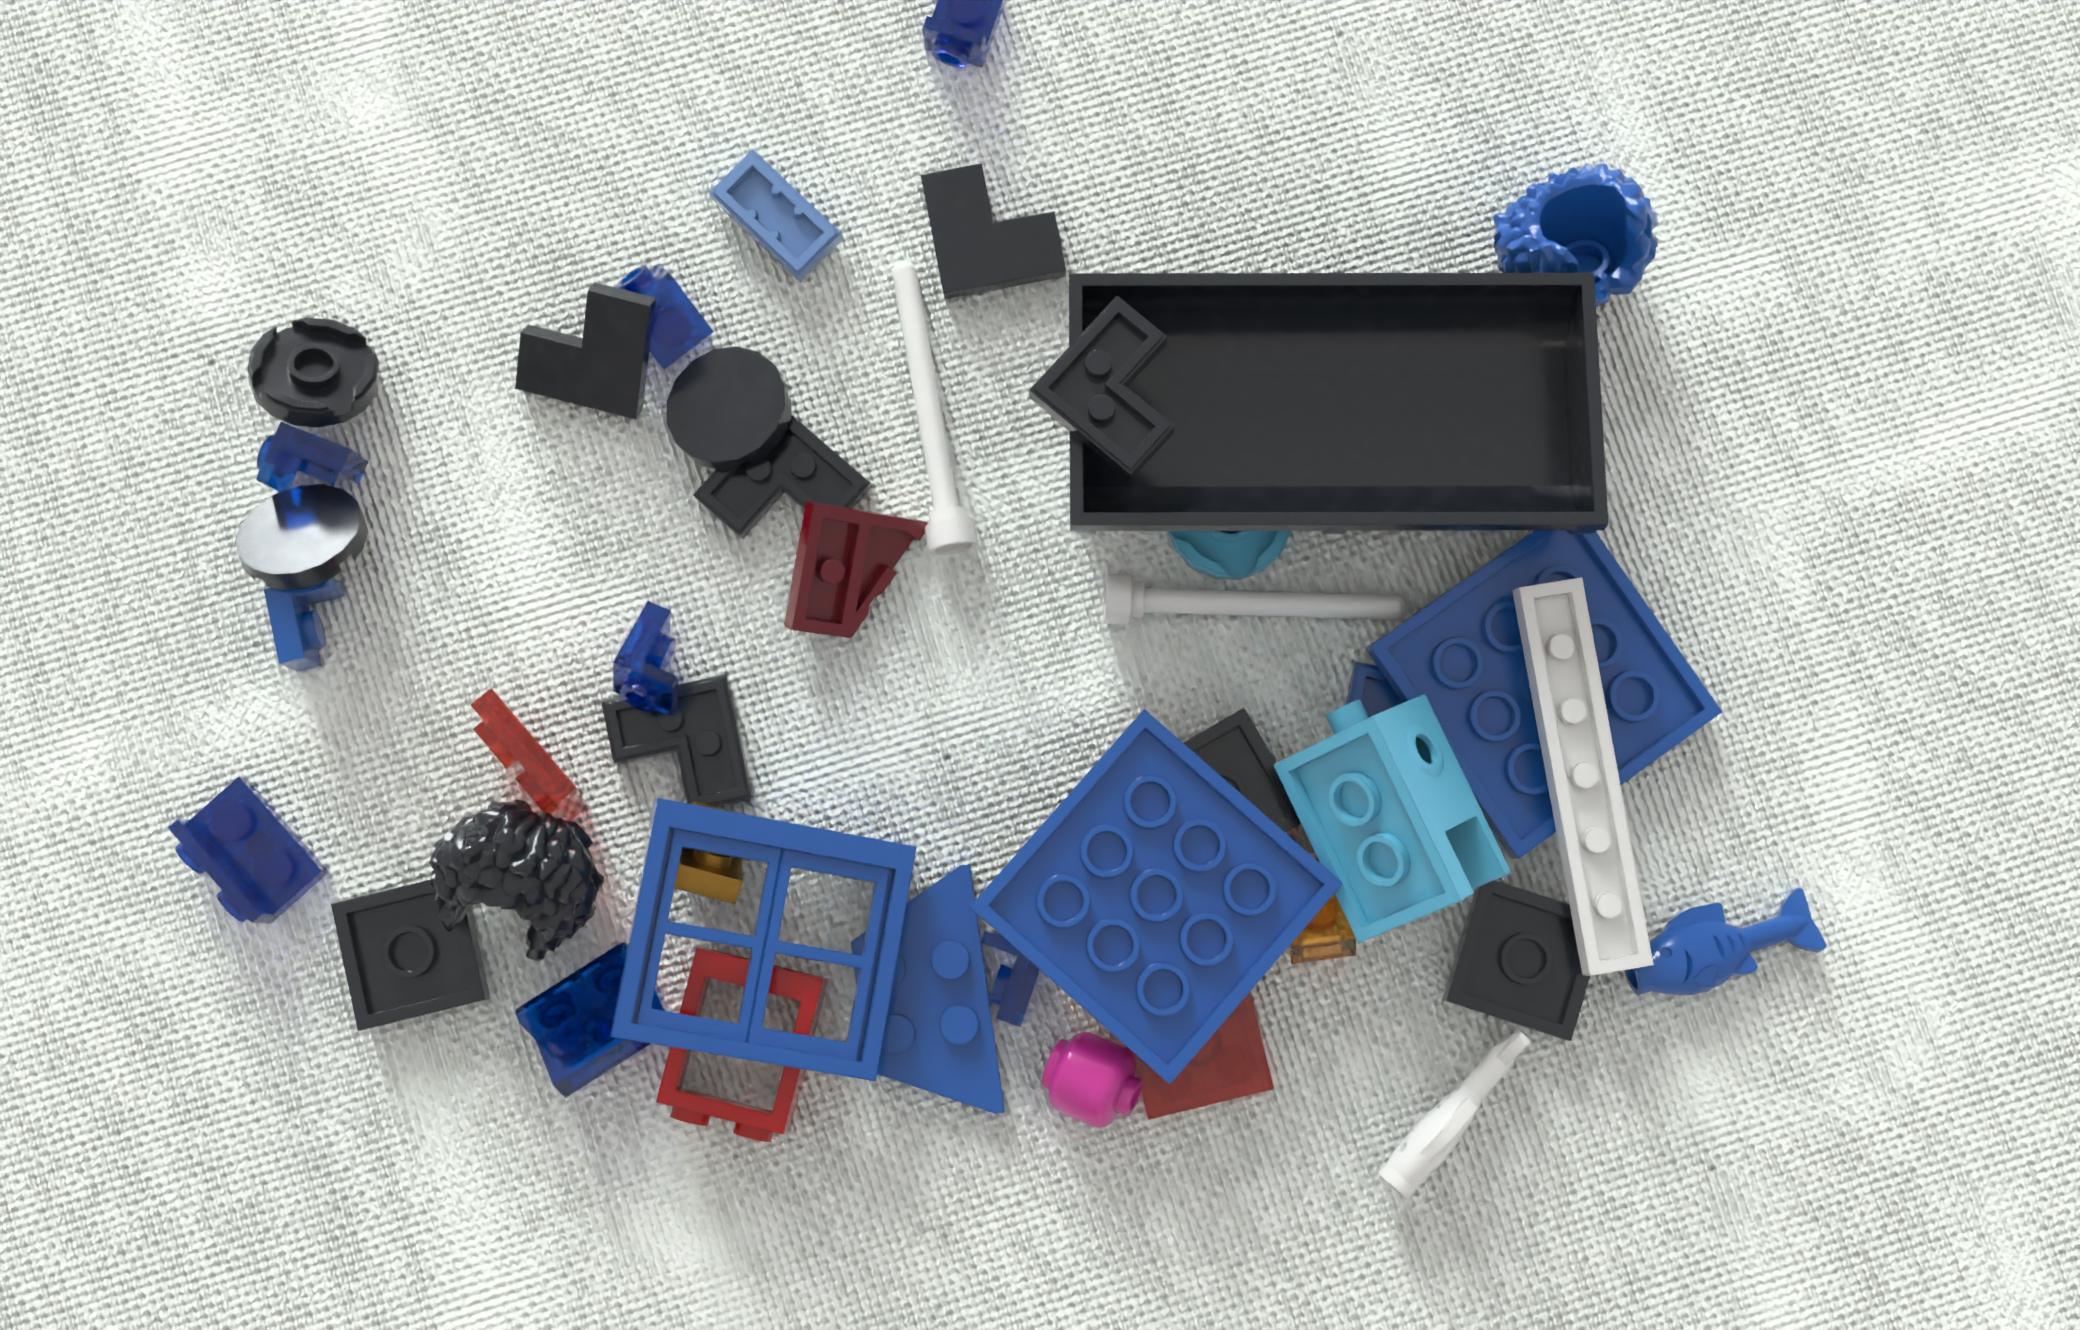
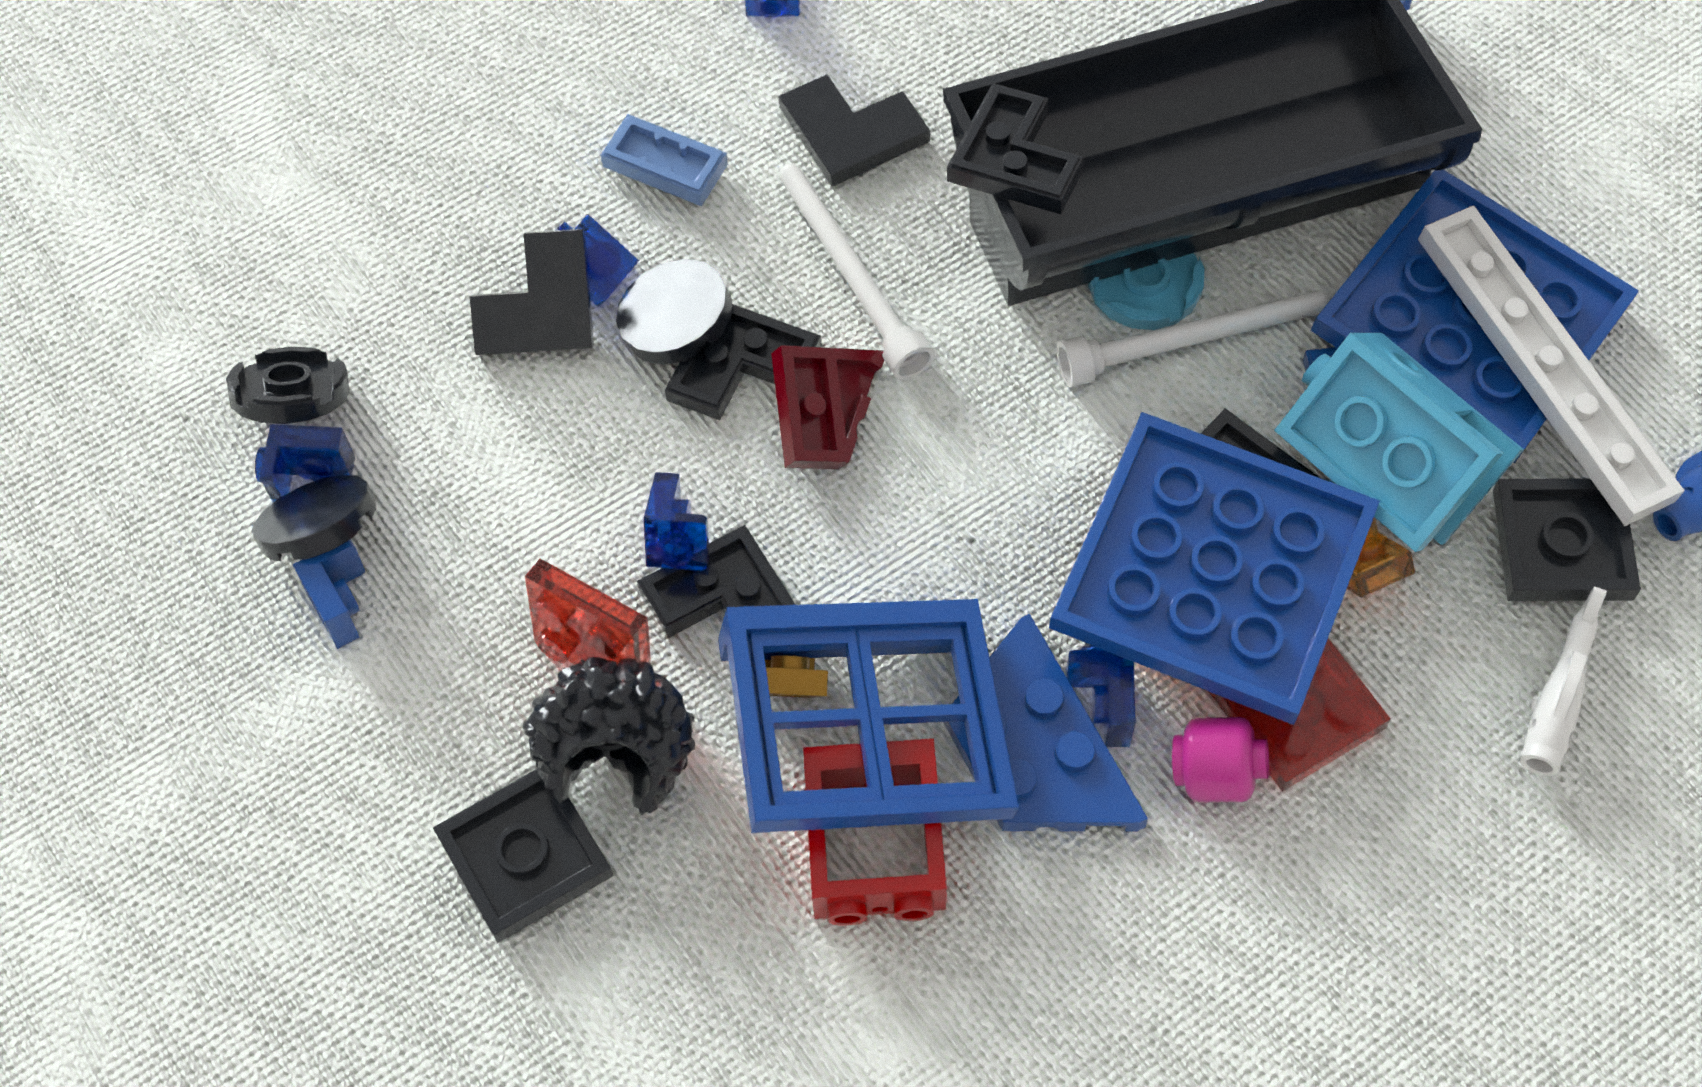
camera: 15 degrees left, 20 degrees down
(248, 854) = (339, 813): clear blue bracket -> none
(576, 1021) = (714, 858): clear blue bracket -> none

